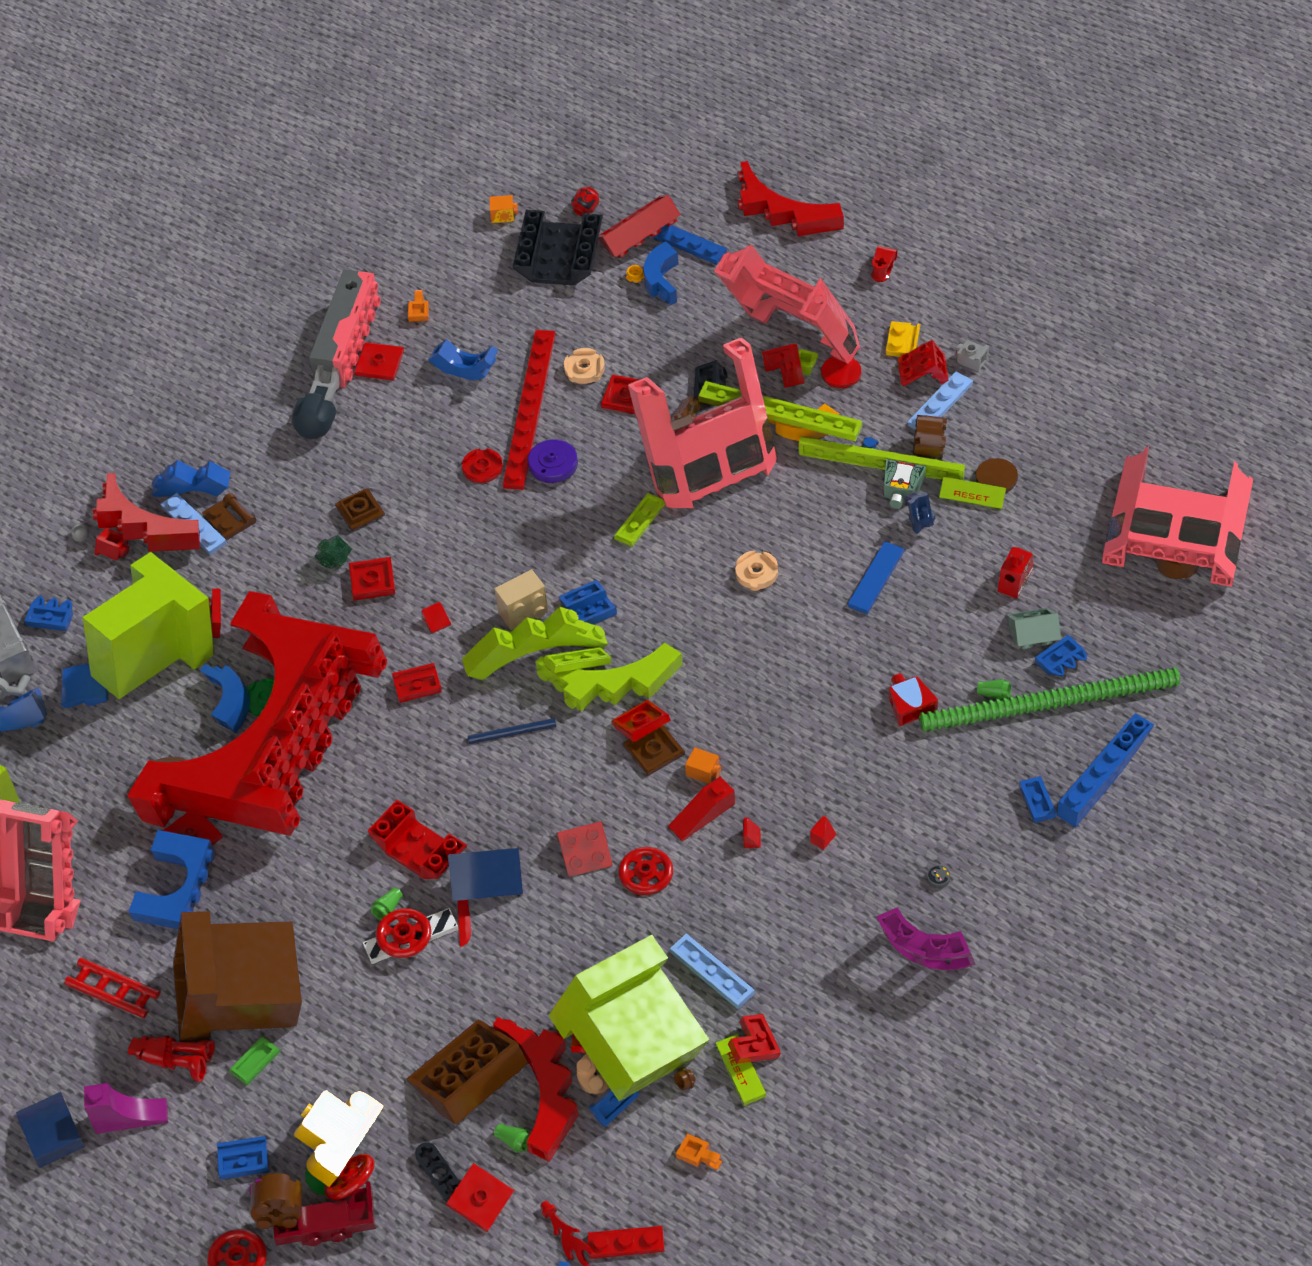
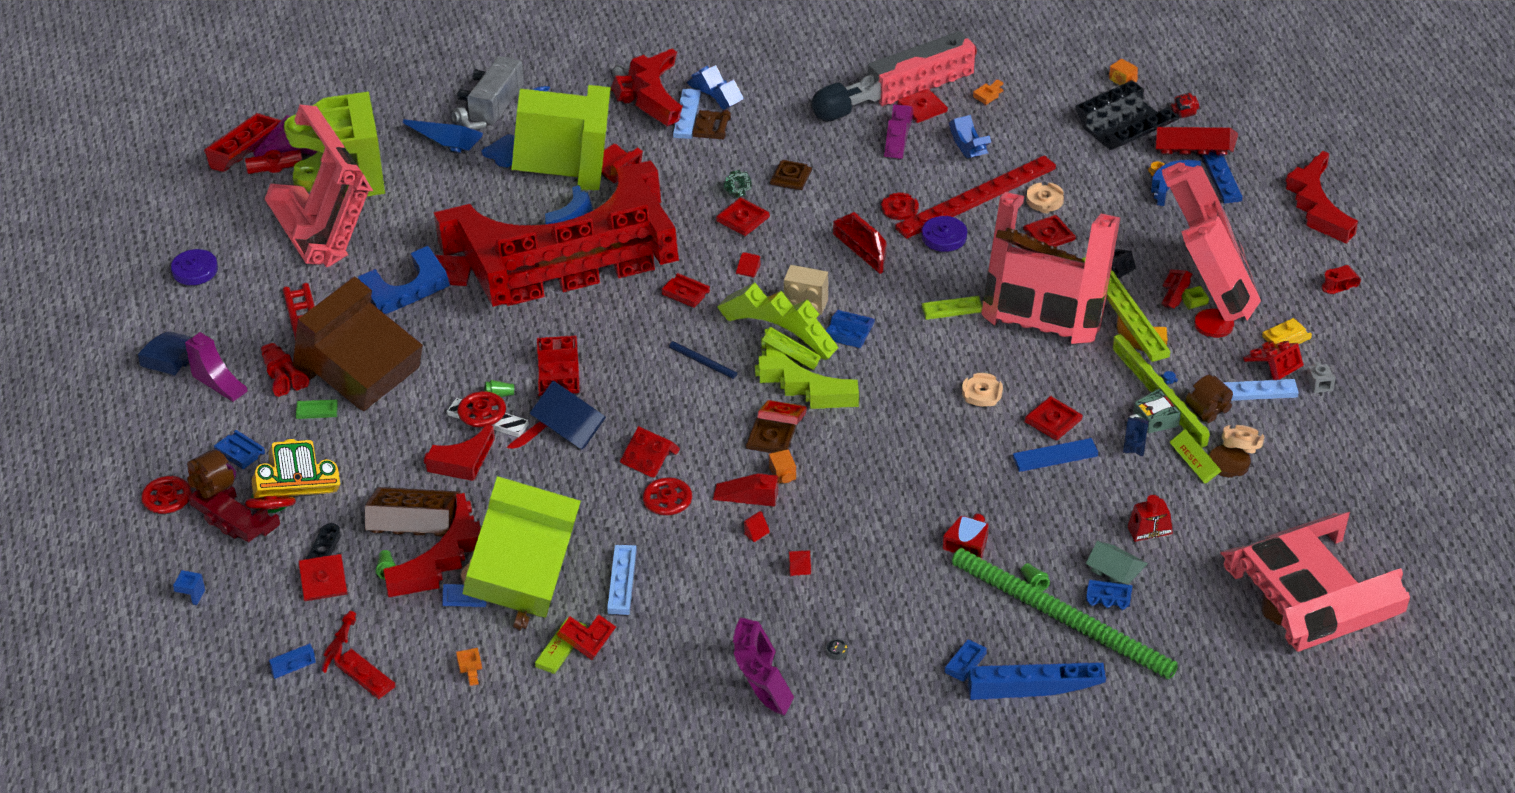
camera: 45 degrees right, 10 degrees down
(397, 398) = (898, 131): none -> magenta arch
(446, 991) = (461, 459): none -> red arch
(502, 519) = (861, 239): none -> red wedge
(837, 548) = (1053, 418): none -> red plate
(987, 450) = (1242, 437): none -> light nougat plate

